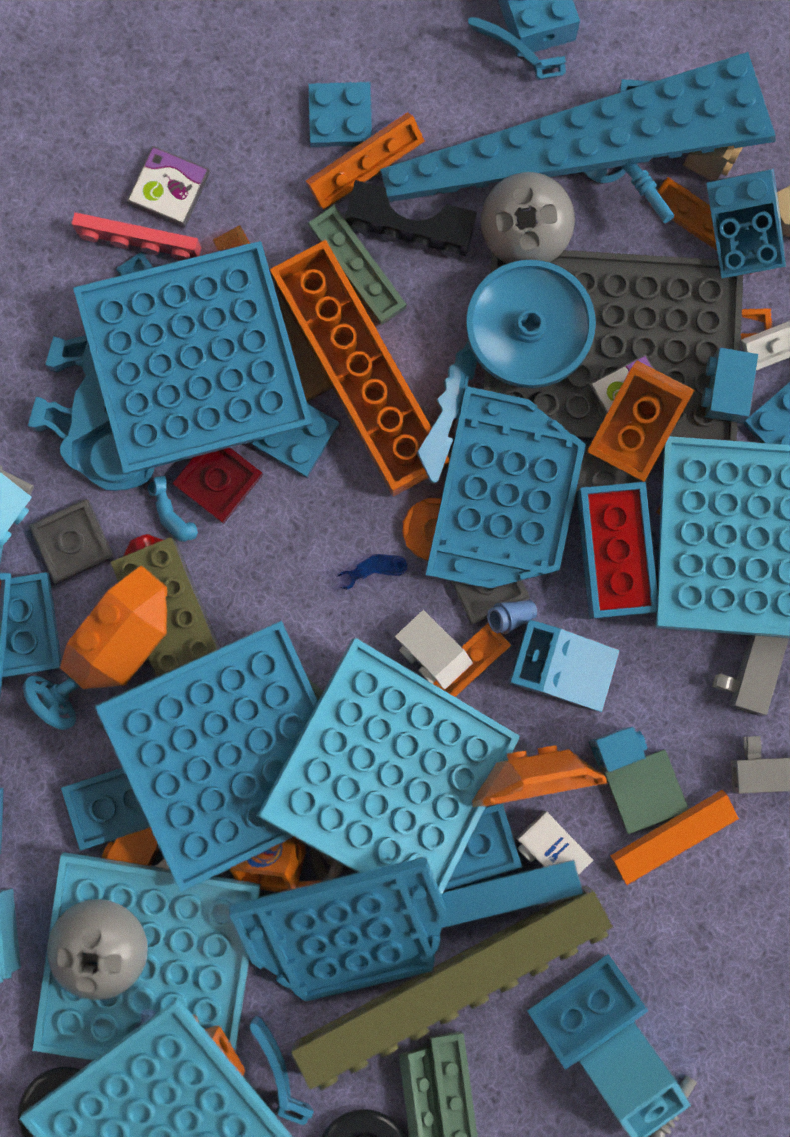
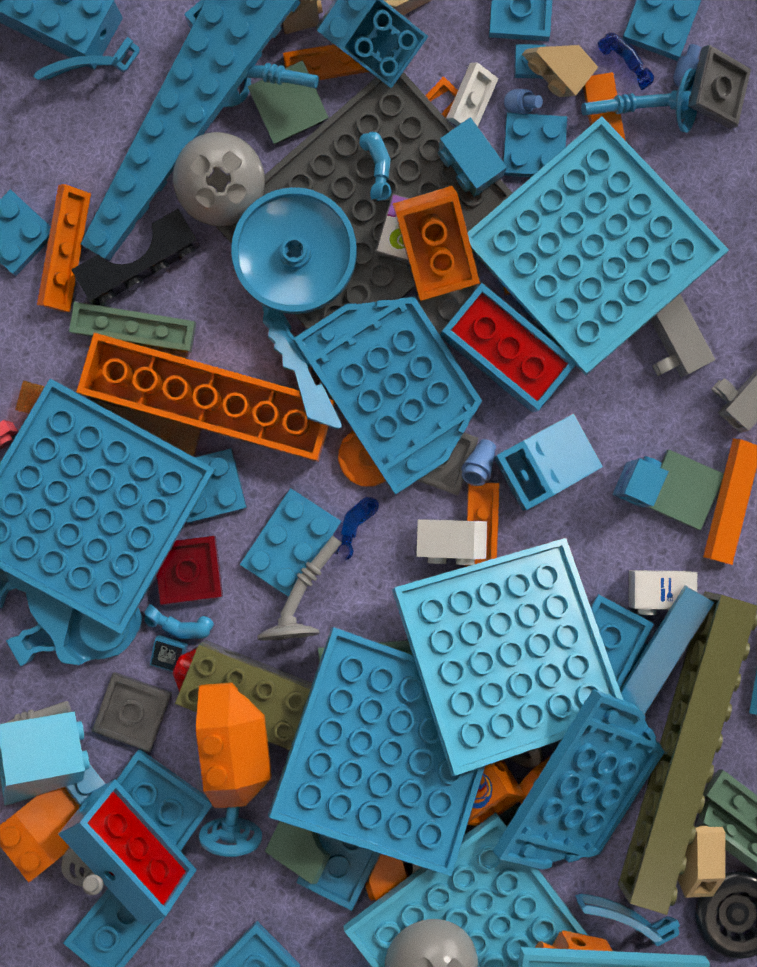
camera: 45 degrees left, 5 degrees up
(89, 763) = (298, 851): none -> sand green tile
(140, 523) = (167, 652): none -> slope
(248, 591) = (287, 624): none -> light grey dish
(312, 535) = (290, 541): none -> dark azure plate
(377, 1084) = (705, 863): none -> tan slope
(536, 776) = (604, 556): orange wedge -> none
(631, 218) = (288, 107): none -> sand green tile
(667, 308) = (374, 144): none -> dark azure arm

